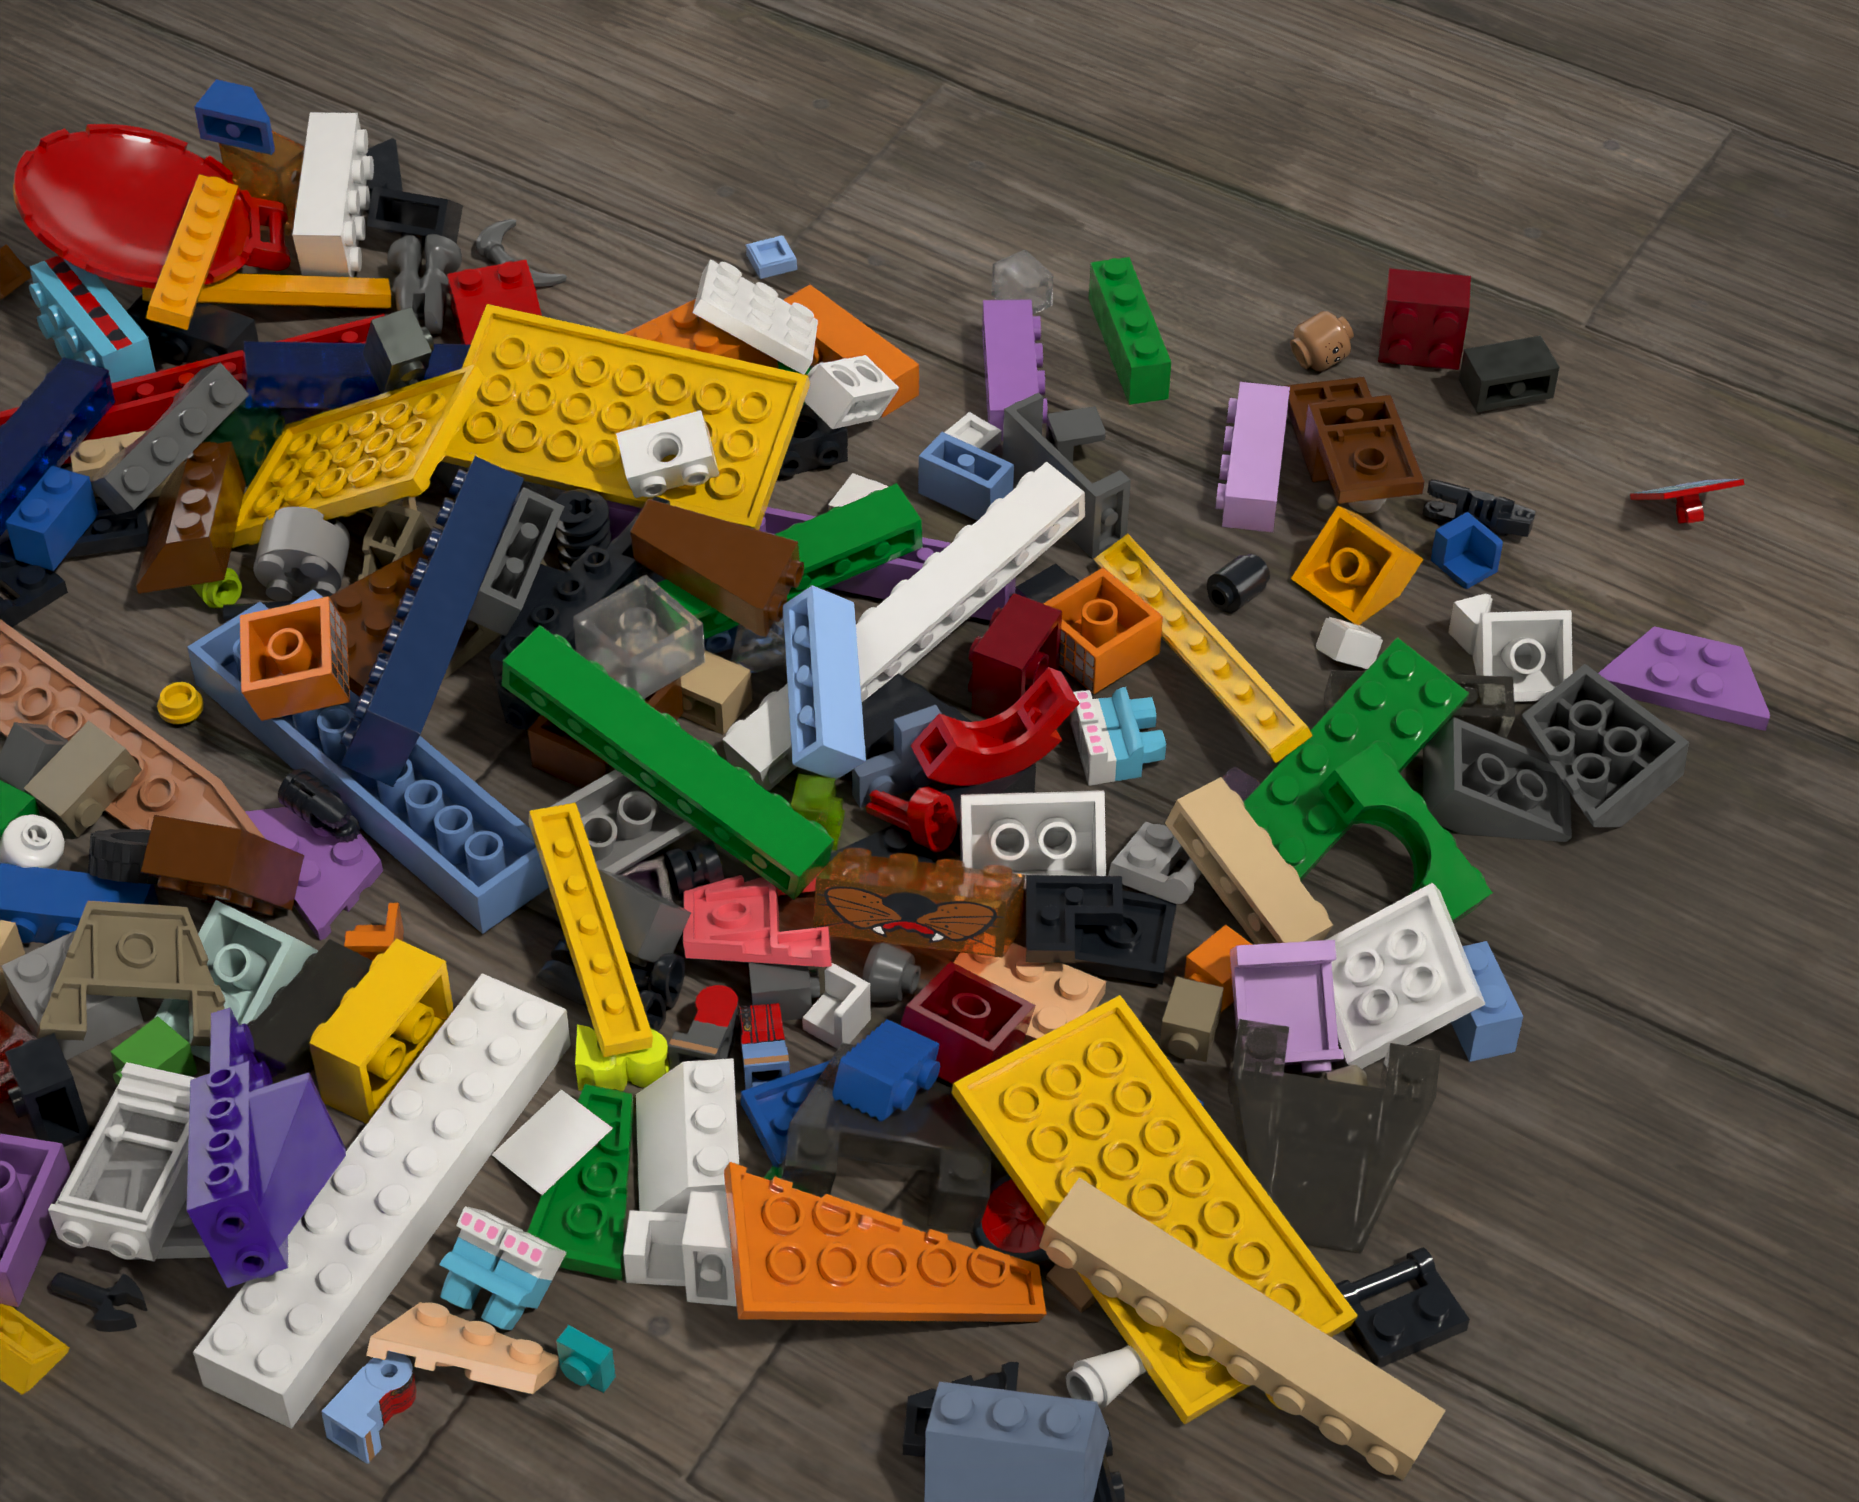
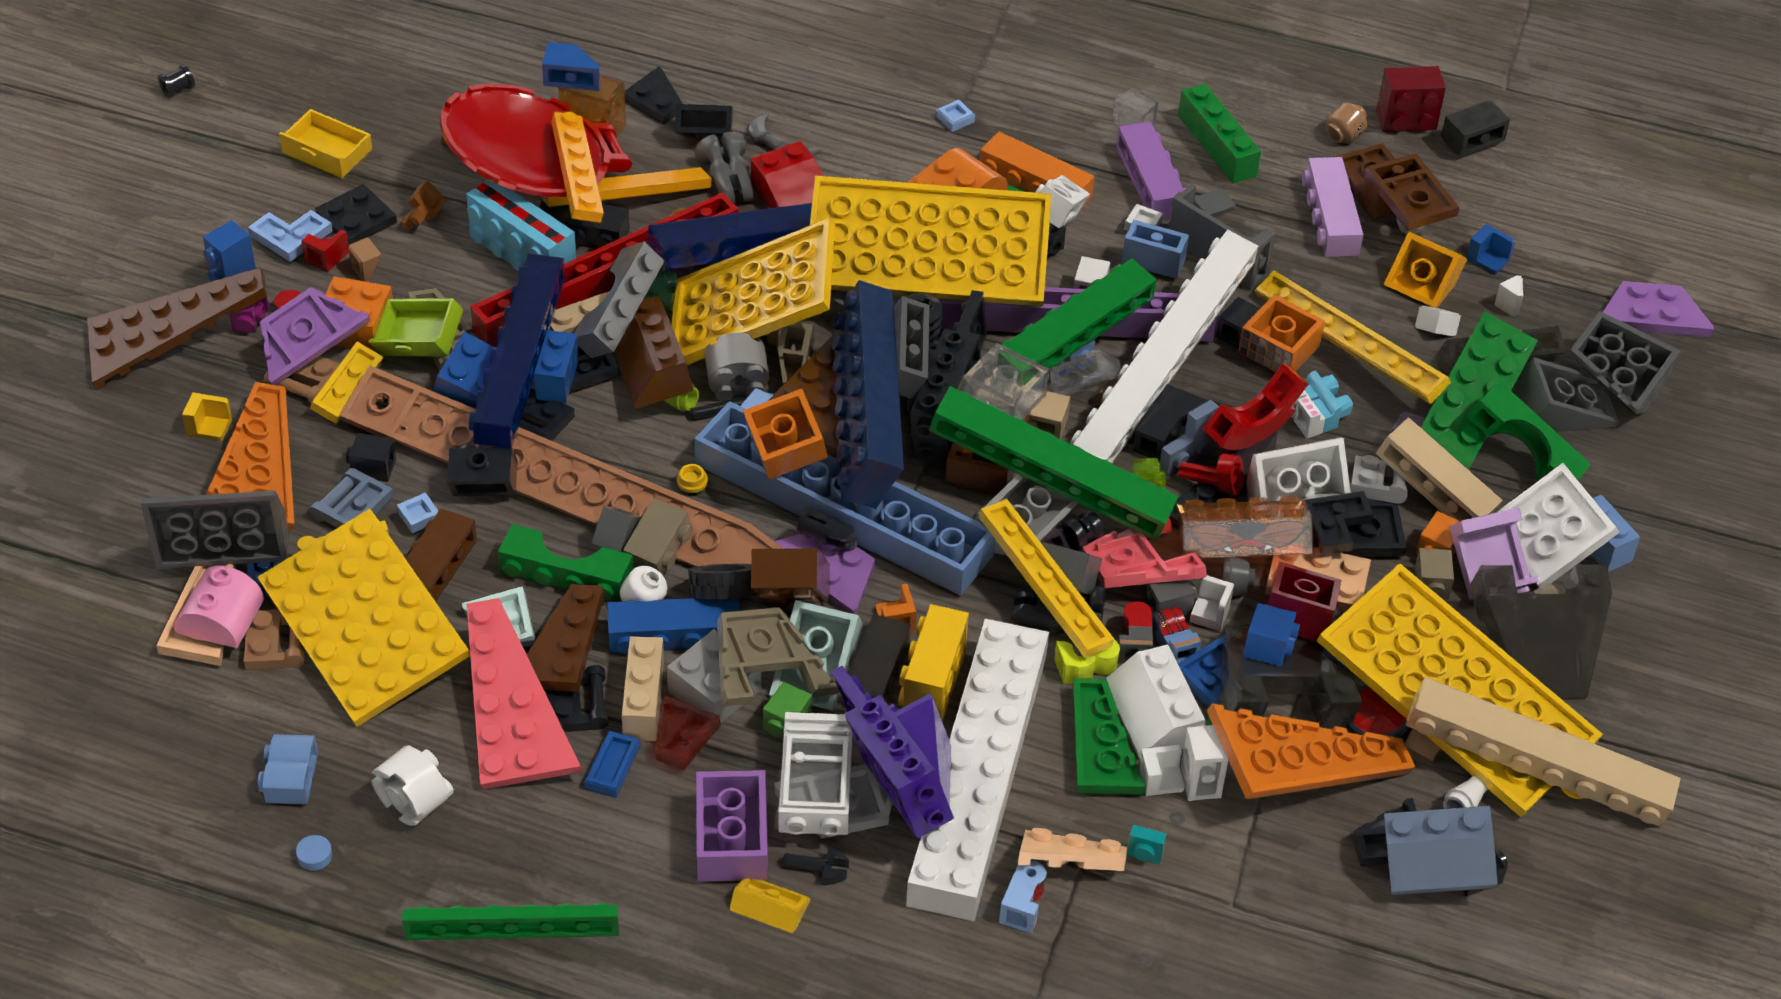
camera: 15 degrees left, 0 degrees up
(47, 1092) = (734, 739): black brick -> none
(332, 196) = (648, 114): white brick -> none
(397, 350) = (763, 217): pearl dark grey brick -> none
(502, 1261) = (1056, 794): hips -> none
(551, 1142) = (1067, 717): white sticker -> none
(647, 445) = (984, 247): white brick -> none
(719, 562) = (1039, 327): reddish brown slope -> none
(756, 315) = (988, 158): white plate -> none
(823, 683) = (1135, 396): light blue brick -> none
(1013, 654) = (1237, 363): dark red brick -> none
(1238, 582) = (1353, 292): black brick -> none
(1410, 1320) = (1633, 731): black plate -> none
(1495, 513) = (1500, 220): black hinge -> none
(1526, 646) = (1552, 306): white slope -> none
(1688, 506) = (1615, 192): red piece -> none

